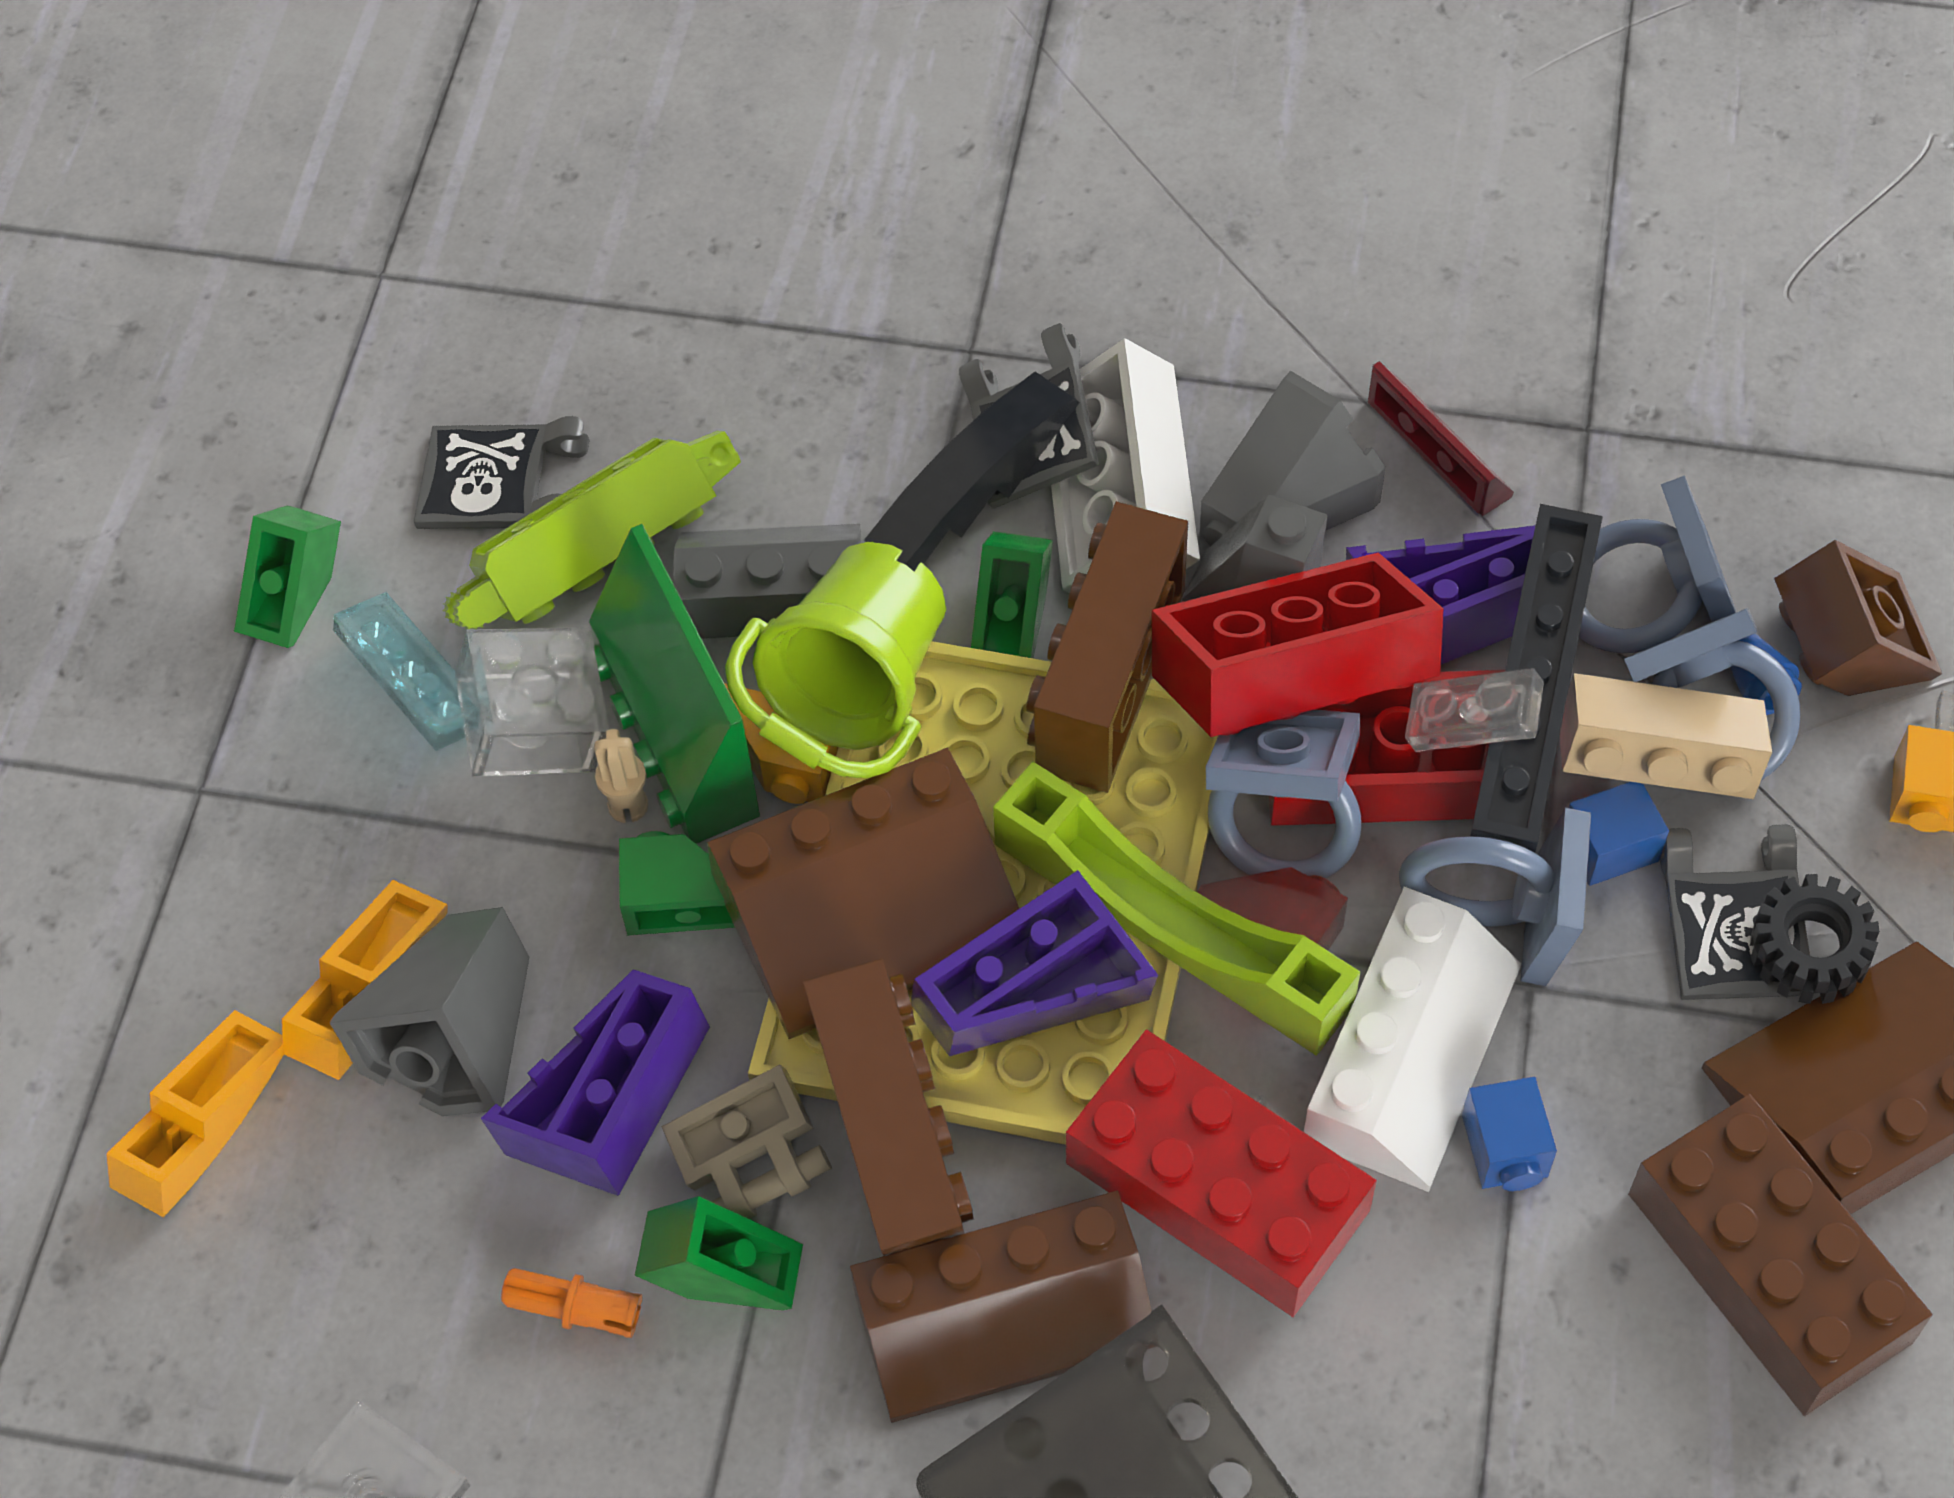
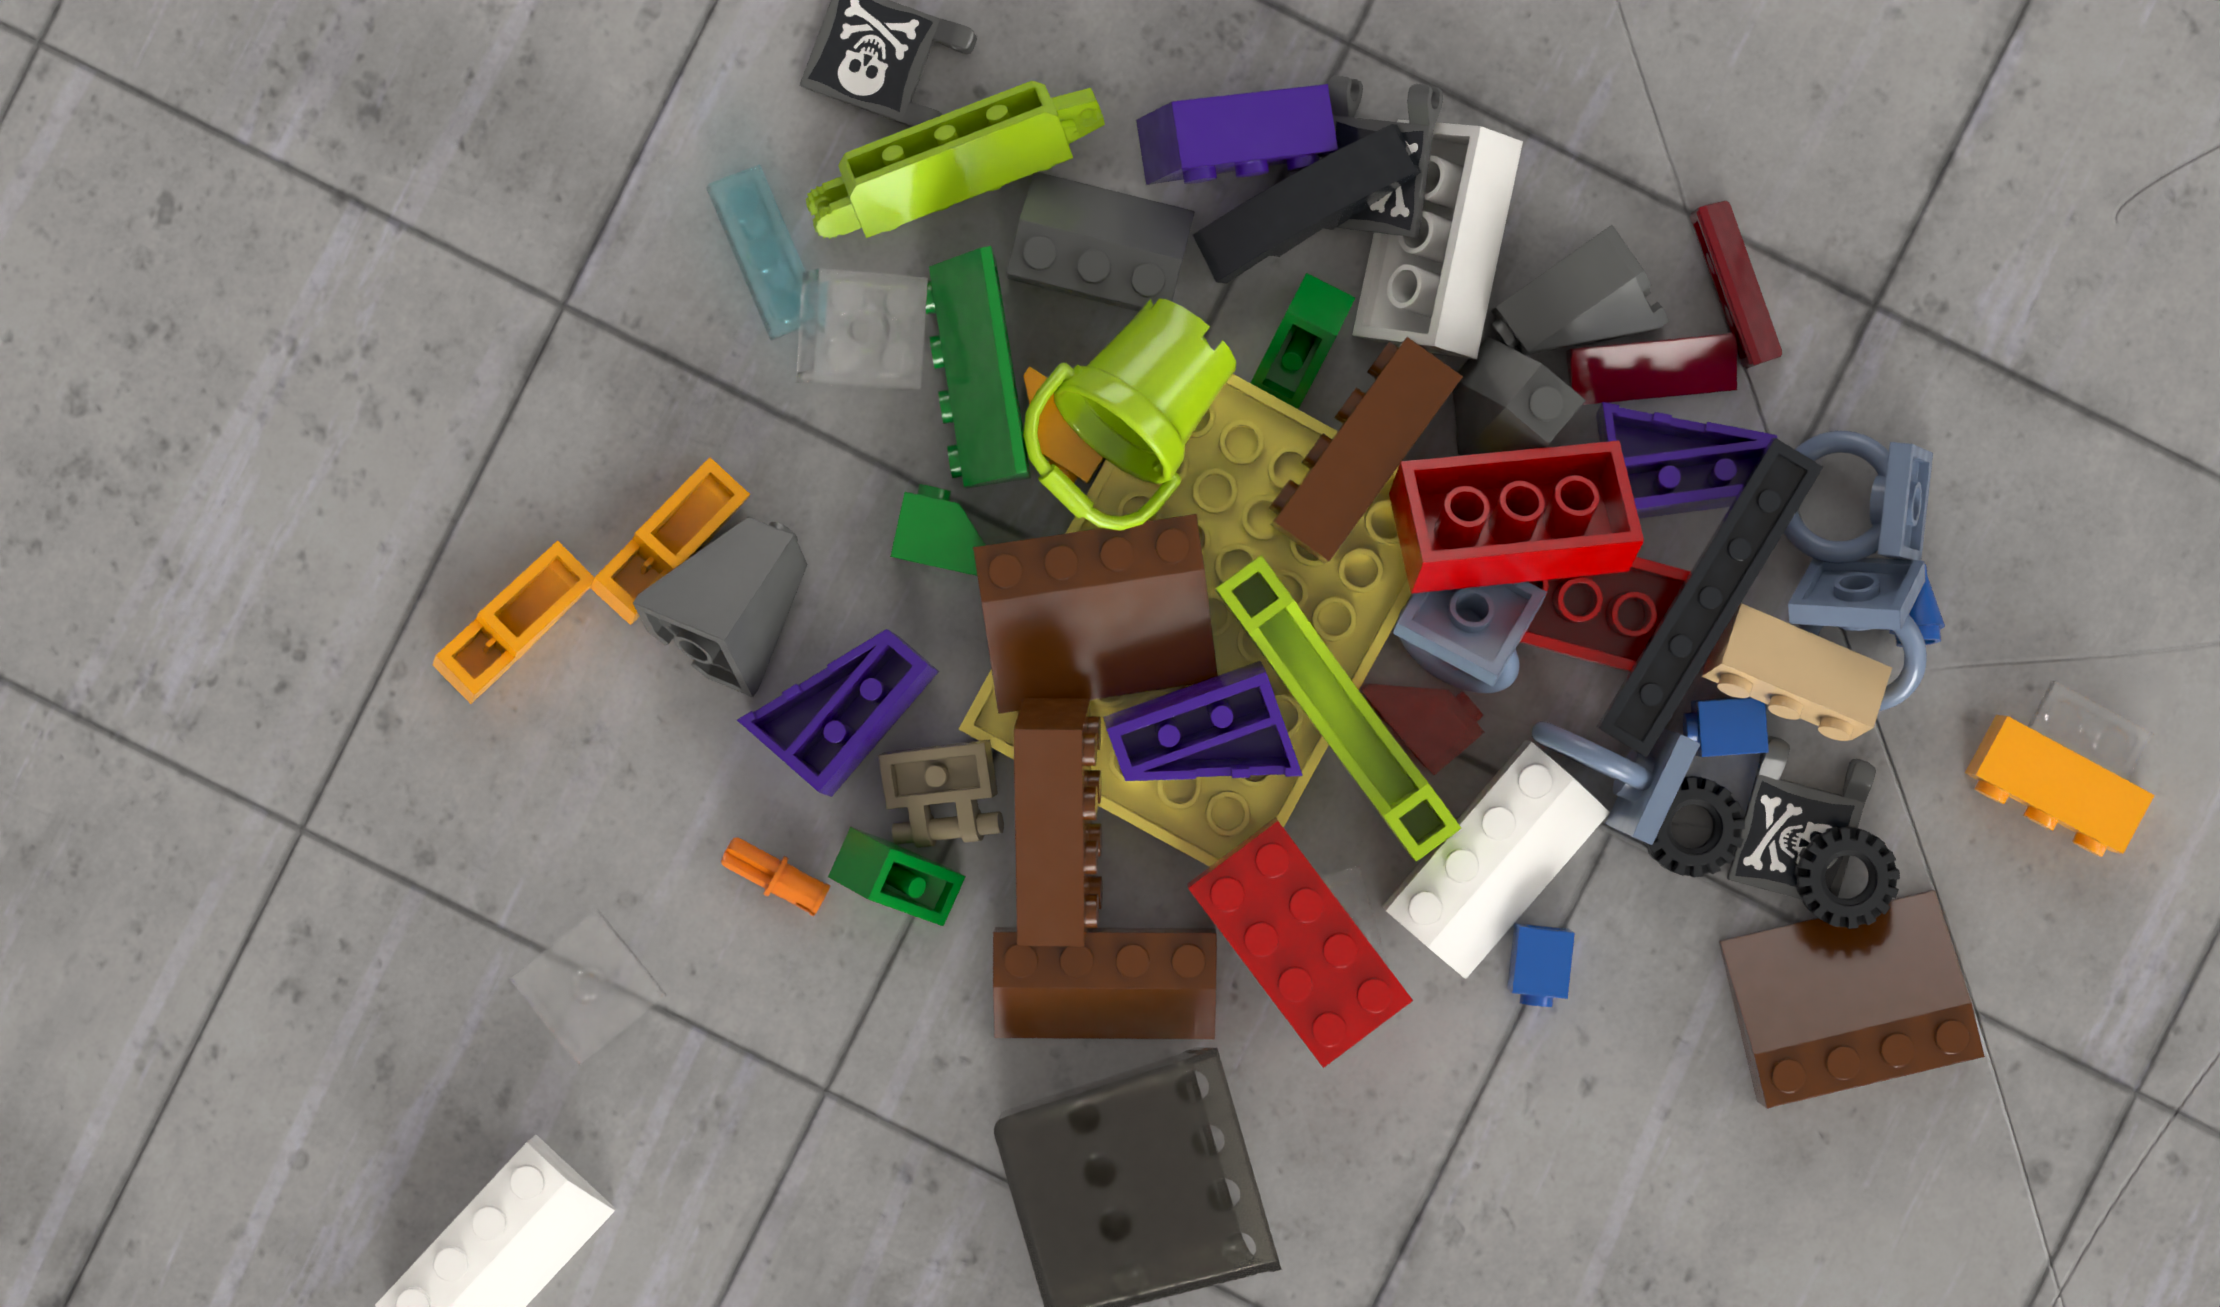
camera: 15 degrees right, 30 degrees up
(285, 573) = (676, 115): green slope -> none
(620, 776) = (920, 430): tan axle -> none
(870, 432) = (1236, 134): none -> dark purple wedge
(1425, 508) = (1654, 369): none -> dark red slope
(1474, 710) = (1641, 622): clear plate -> none
(1621, 980) = (1723, 840): none -> black tyre
(1778, 1254) = (1706, 1122): reddish brown brick -> none
(1854, 622) = (2015, 592): reddish brown slope -> none

